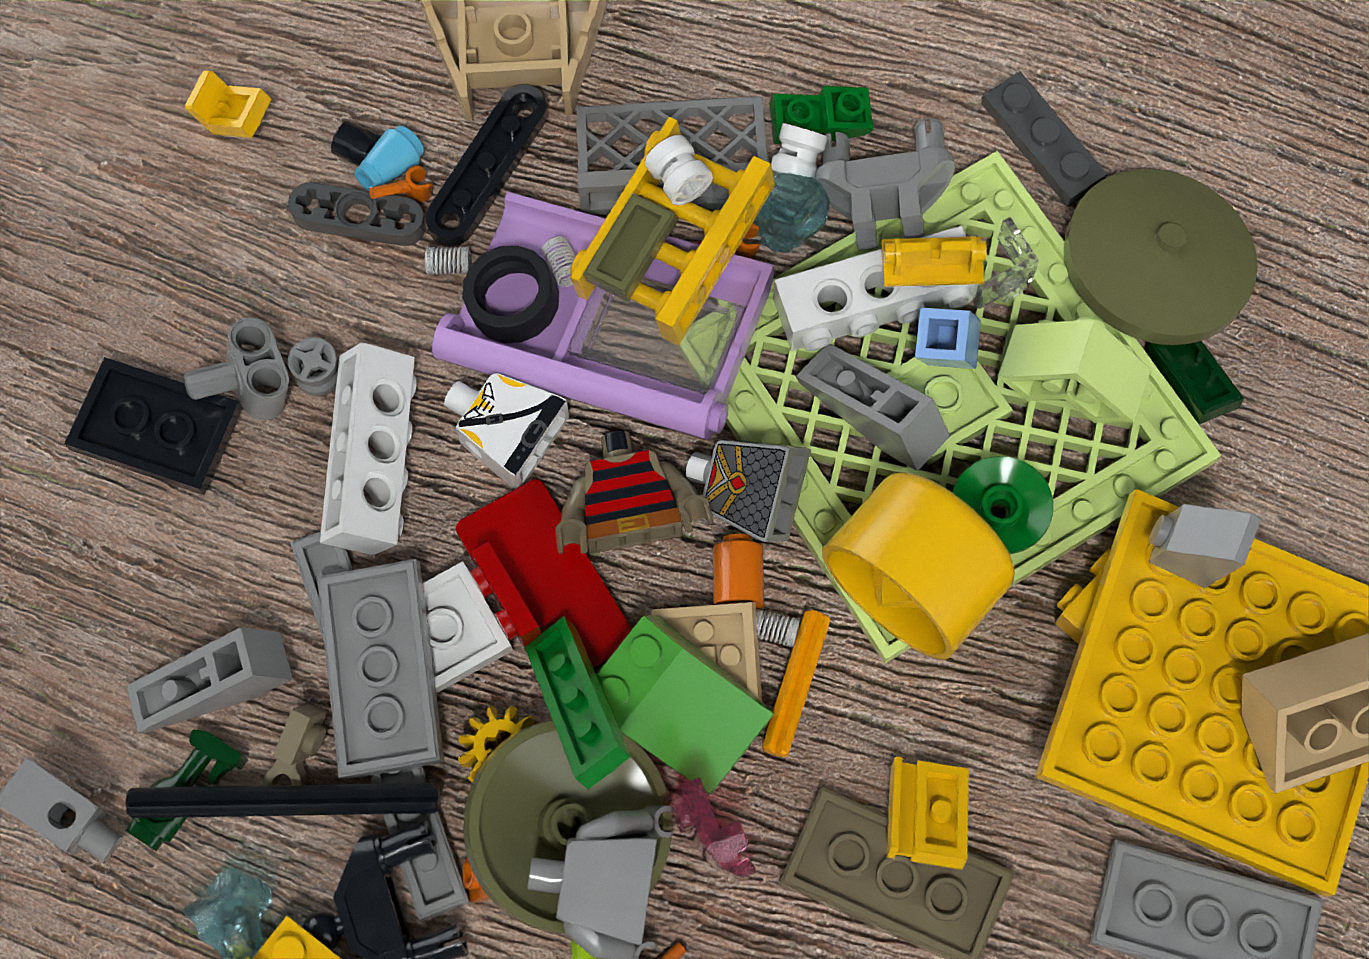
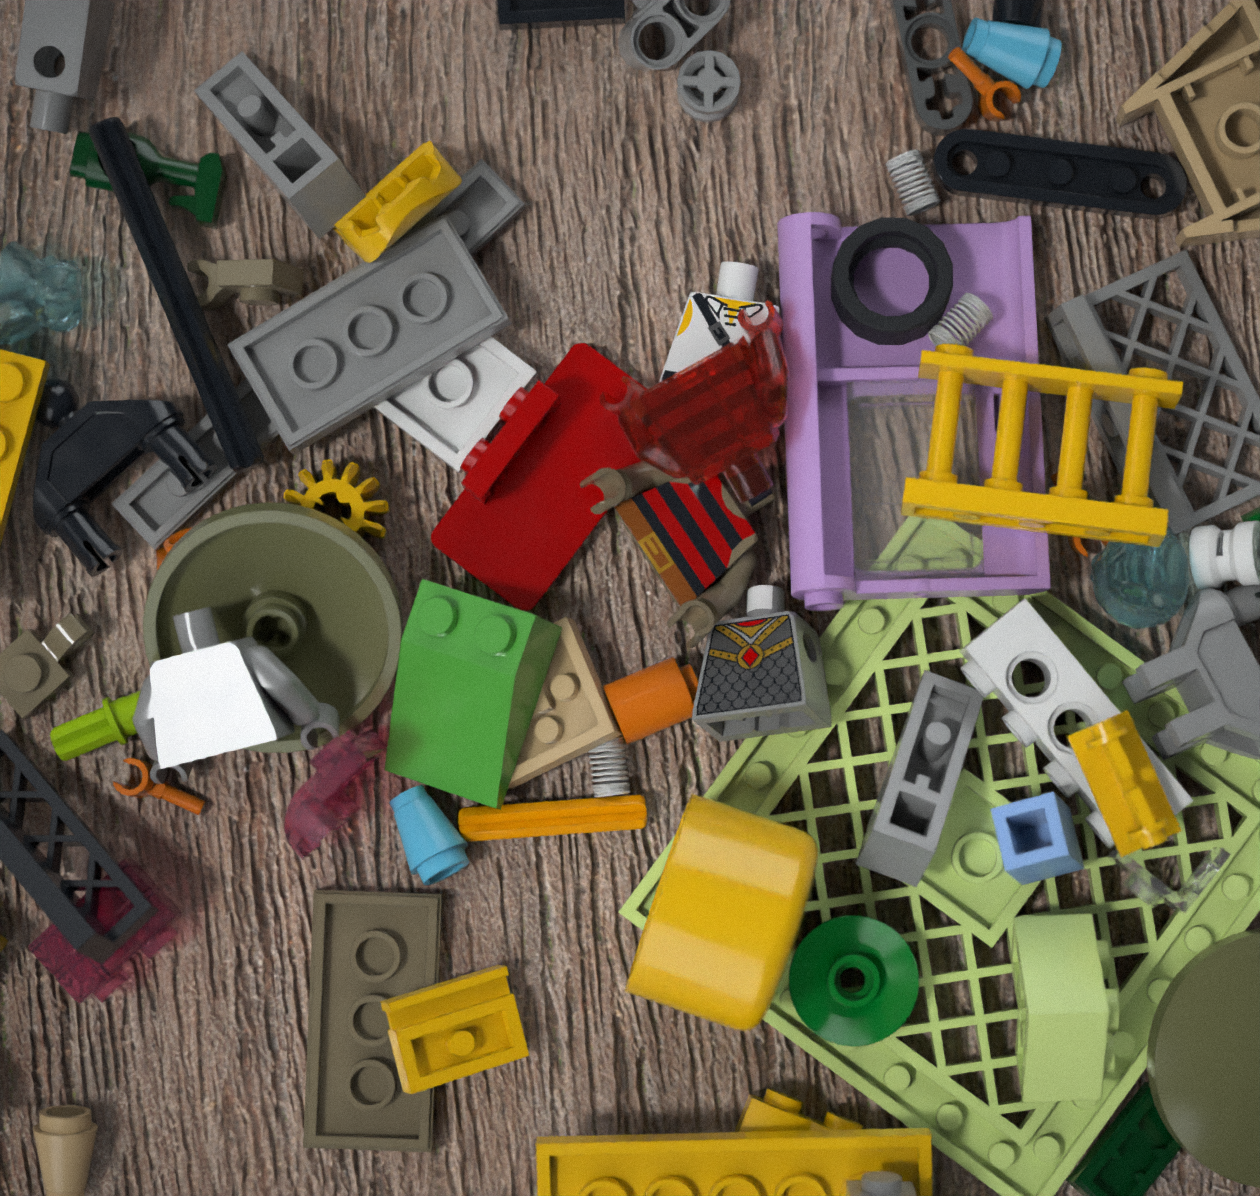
camera: 70 degrees right, 15 degrees up
(293, 608) = (397, 202): none -> yellow slope
(347, 516) = (594, 188): white brick -> none
(549, 436) = (713, 411): none -> clear red torso
(577, 703) = (401, 581): green plate -> none
(630, 247) = (991, 407): olive tile -> none
(678, 169) = (1110, 425): white wheel -> none
(773, 778) = (428, 837): none -> medium azure cone

